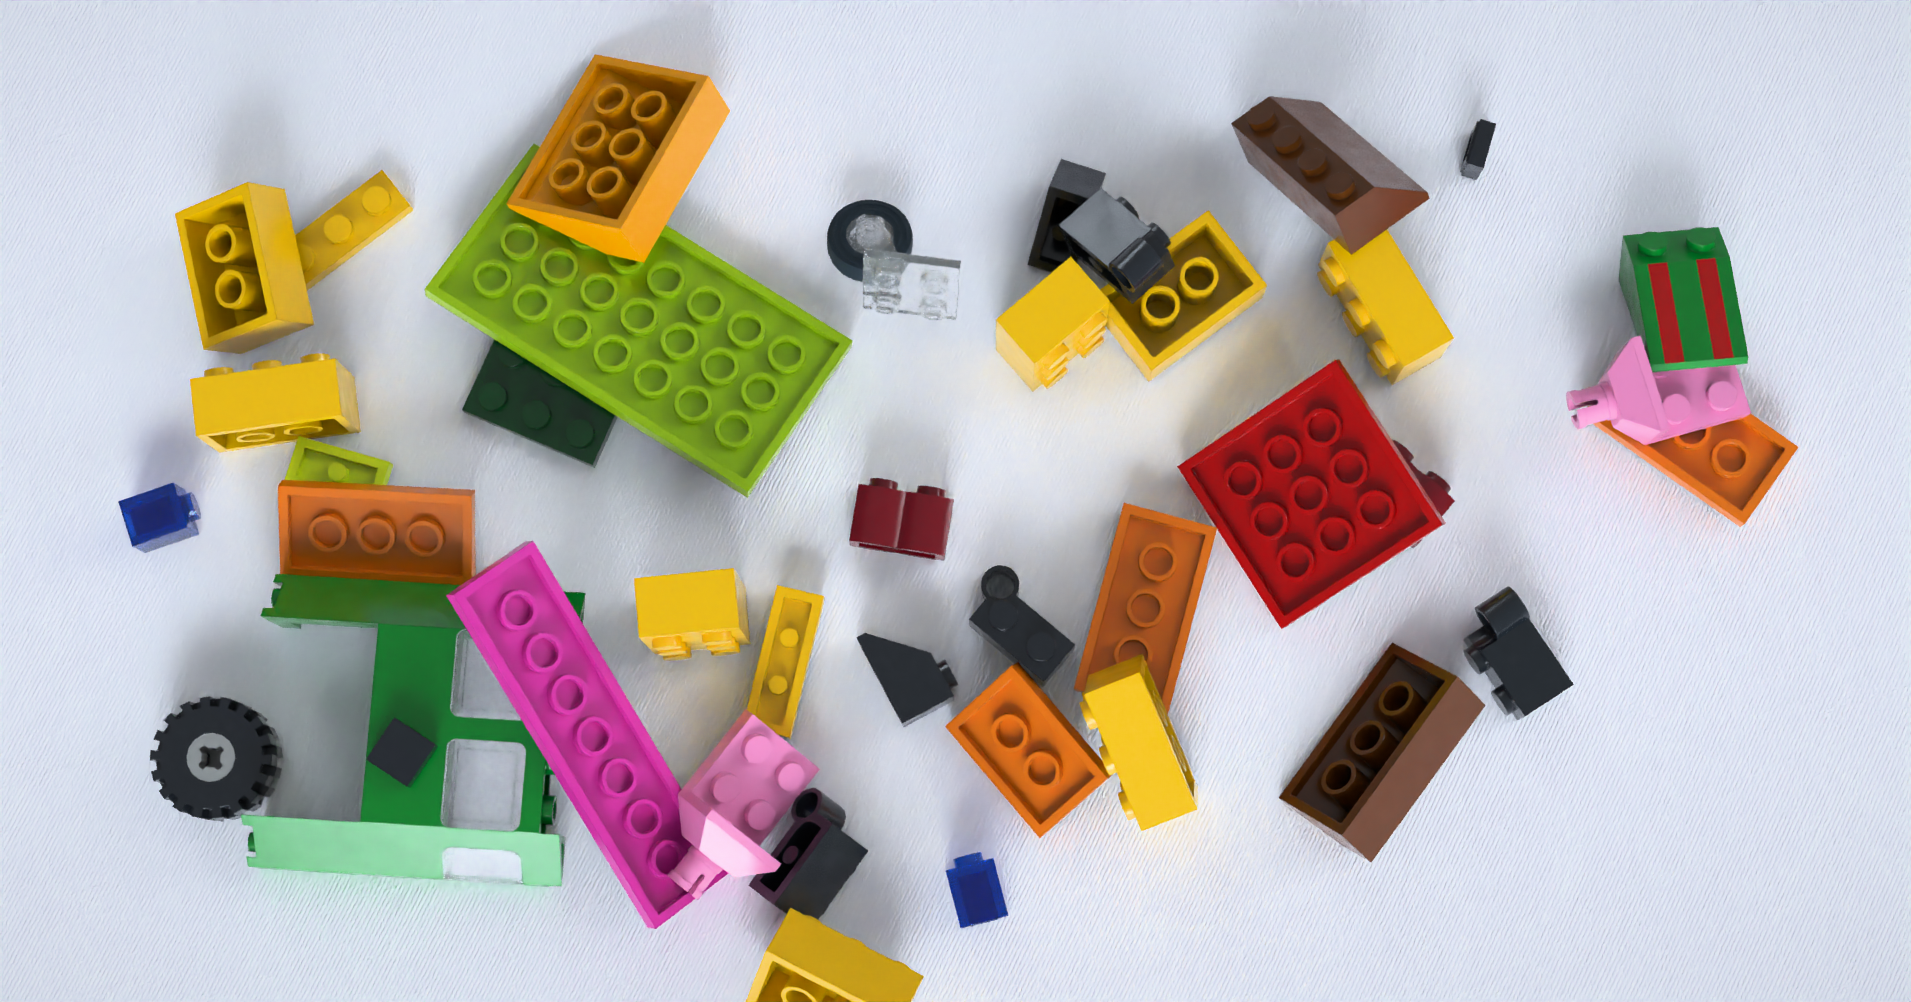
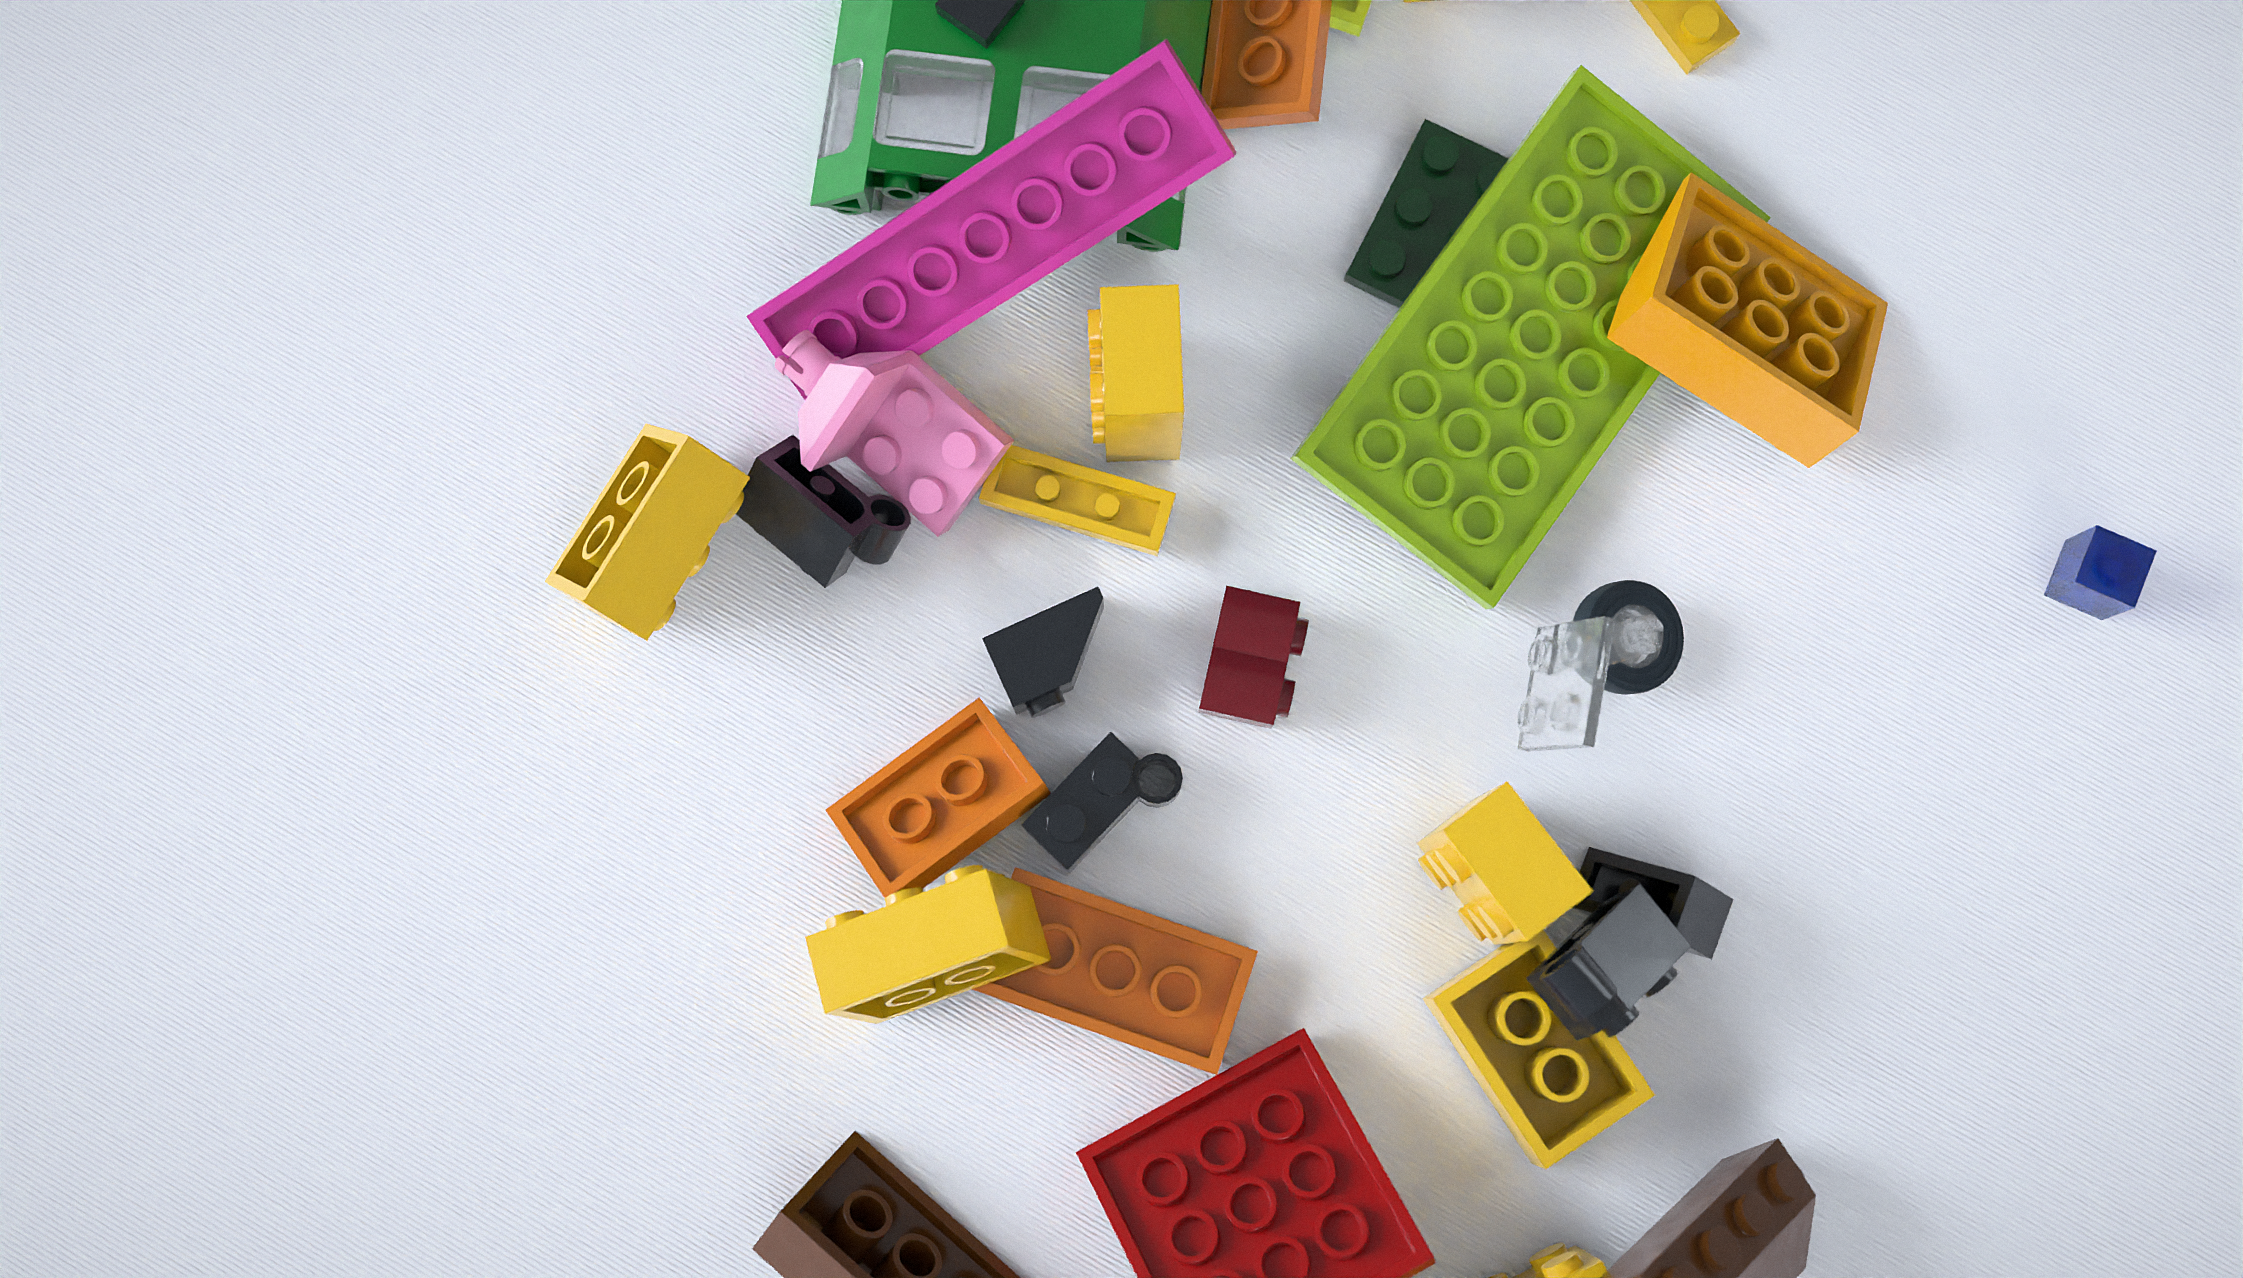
camera: 90 degrees right, 0 degrees up
(976, 890) = (762, 723): clear blue brick -> none

